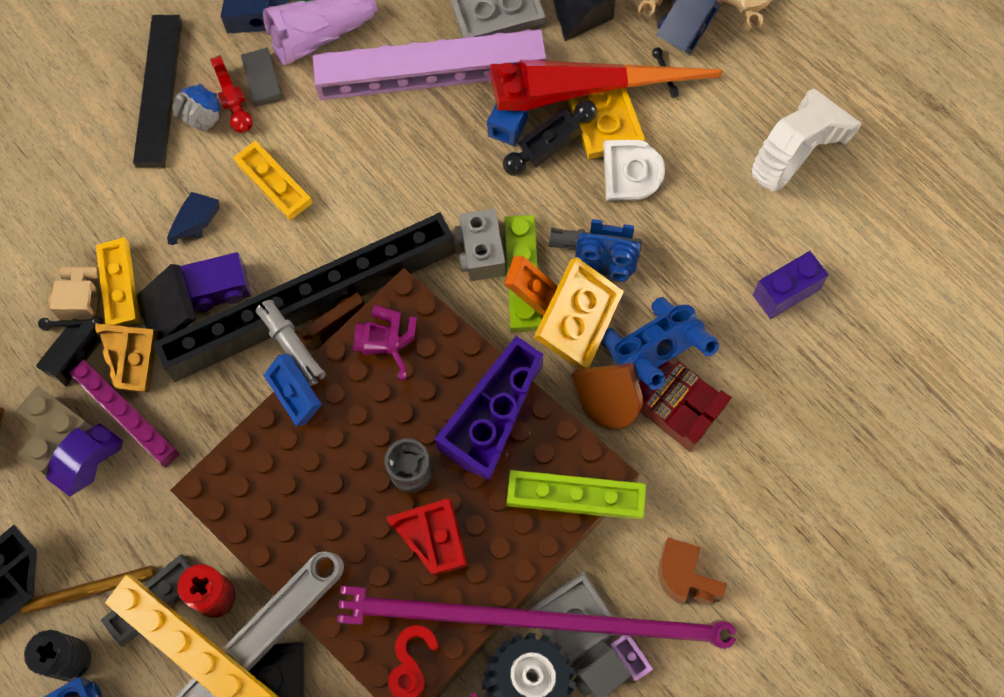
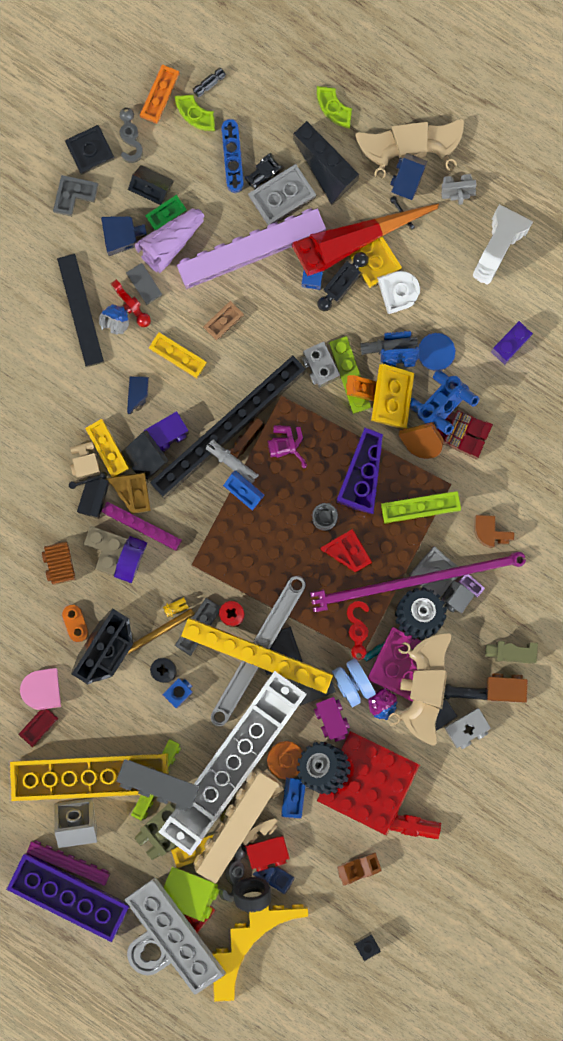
camera: 15 degrees left, 15 degrees up
(124, 556) = (173, 608): none -> yellow pin
(356, 150) = (223, 321): none -> medium nougat plate
(667, 272) = (436, 351): none -> blue tile
(757, 57) = (458, 190): none -> light grey hips

